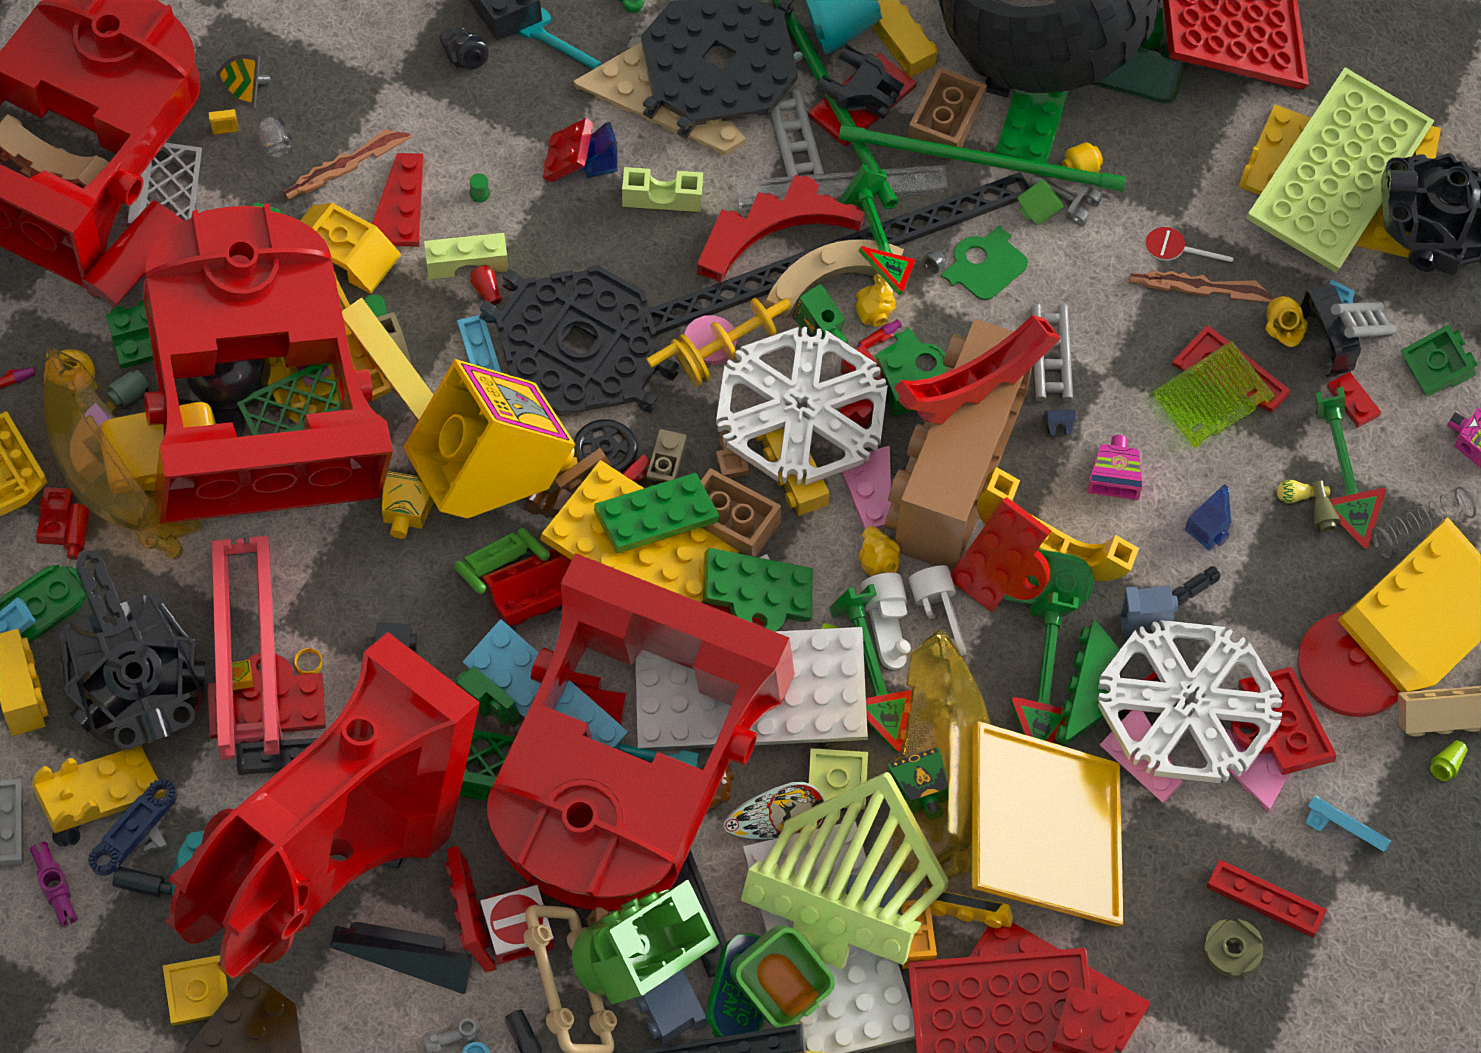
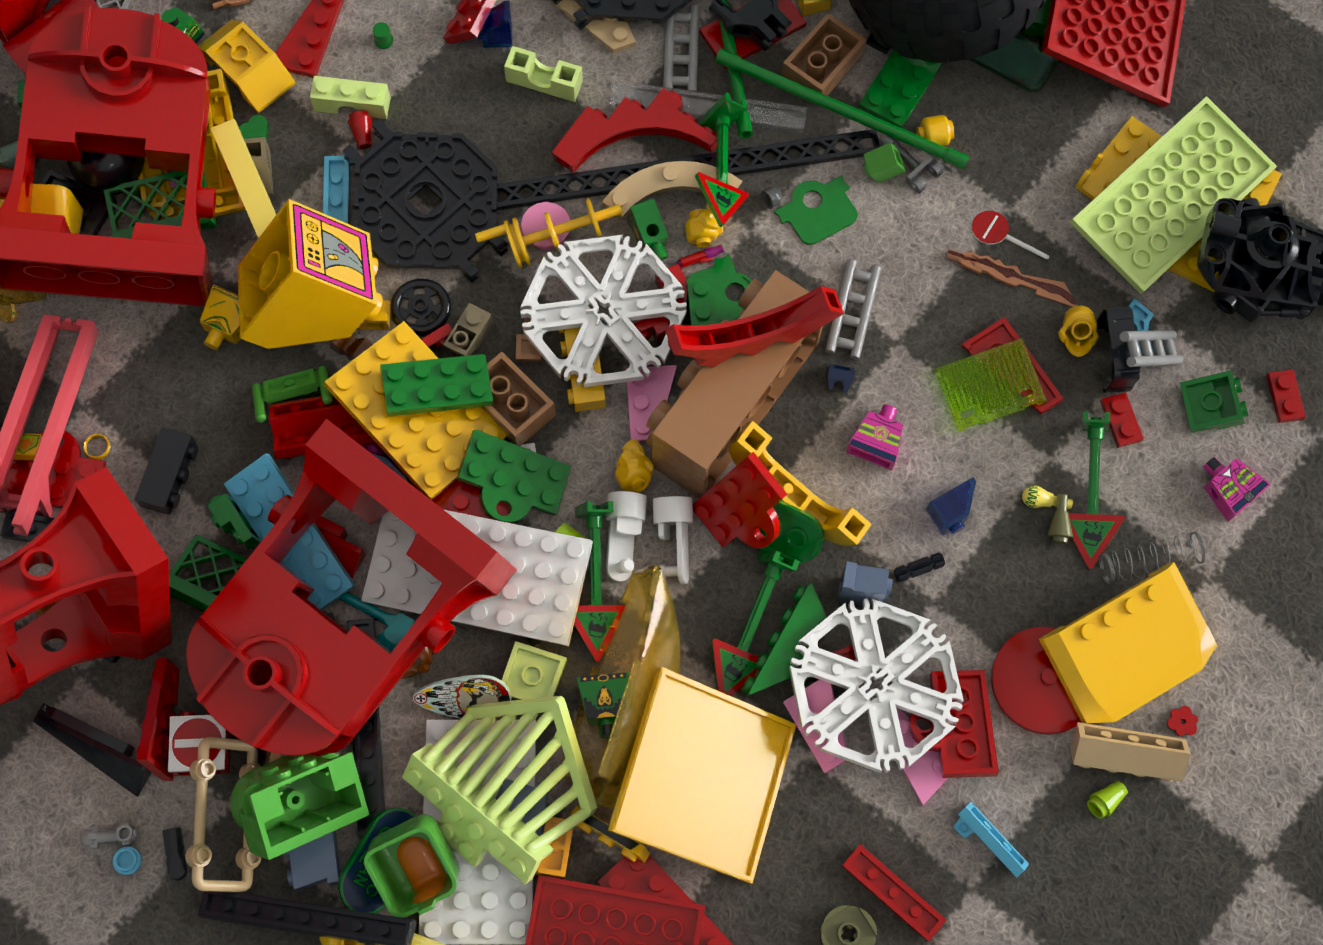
camera: 15 degrees right, 10 degrees up
(577, 474) = (380, 328): medium nougat plate -> none

